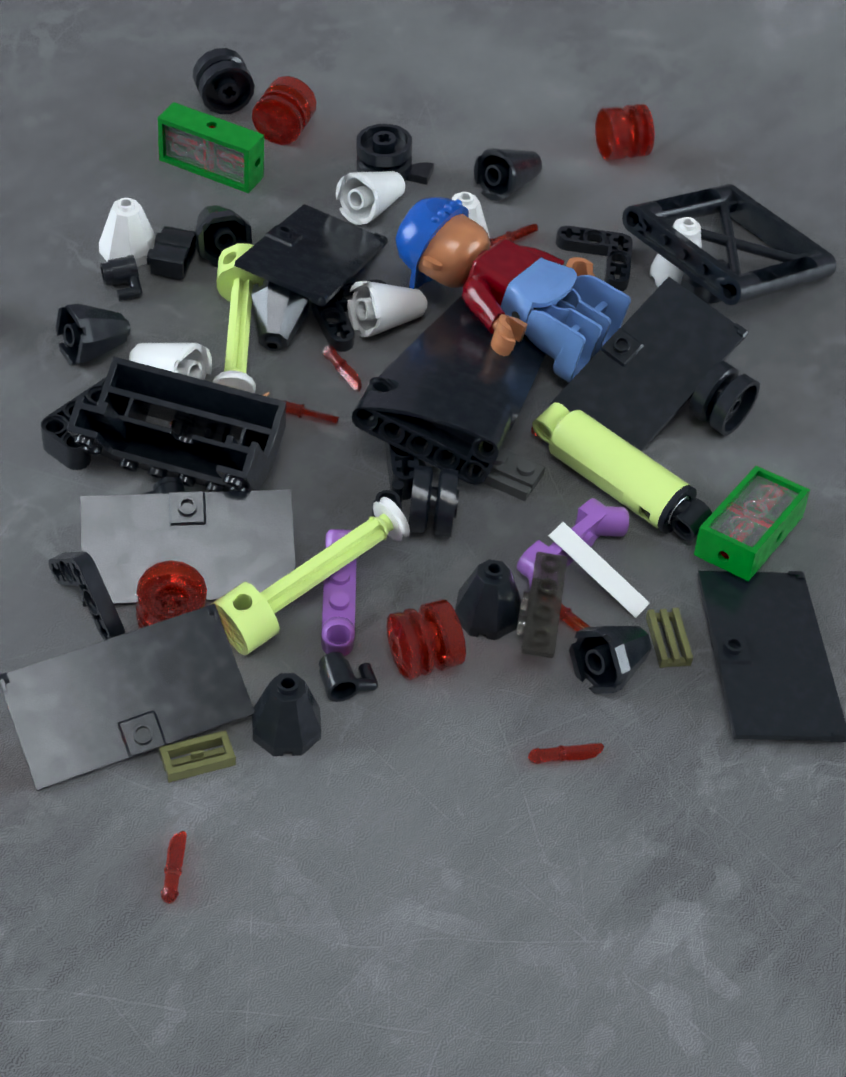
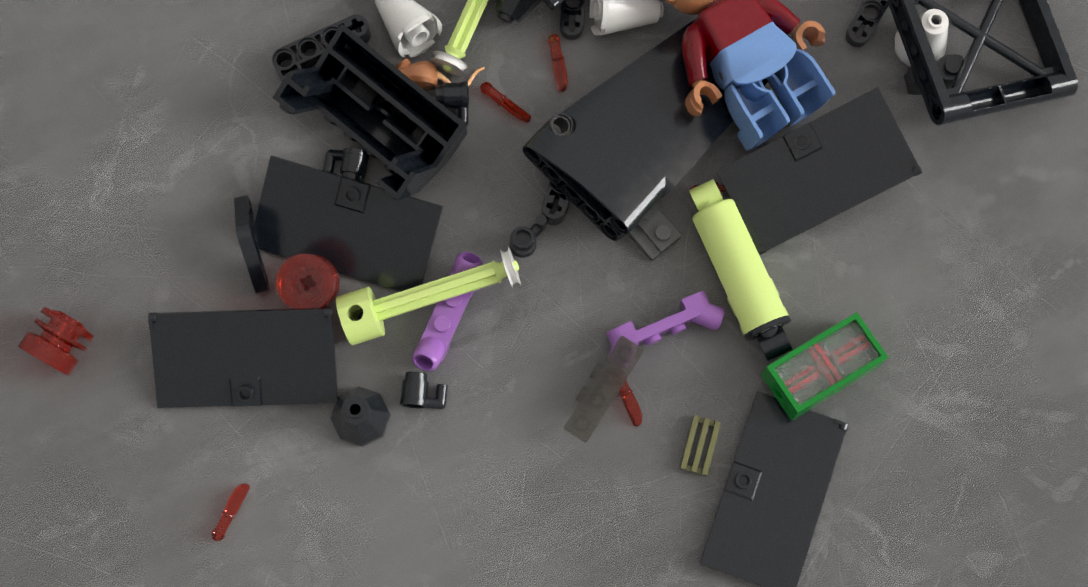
camera: 25 degrees right, 30 degrees up
(199, 760) = (282, 432): olive tile -> none
(426, 639) = (492, 388): clear red wheel -> none
(433, 501) = (564, 251): black wheel -> none
(489, 601) = (561, 374): black cone -> none
(563, 753) = (562, 523): clear red piece -> none
(599, 569) = (671, 363): white sticker -> none
(609, 655) = (639, 452): black cone -> none
(724, 398) = (873, 222): black wheel -> none

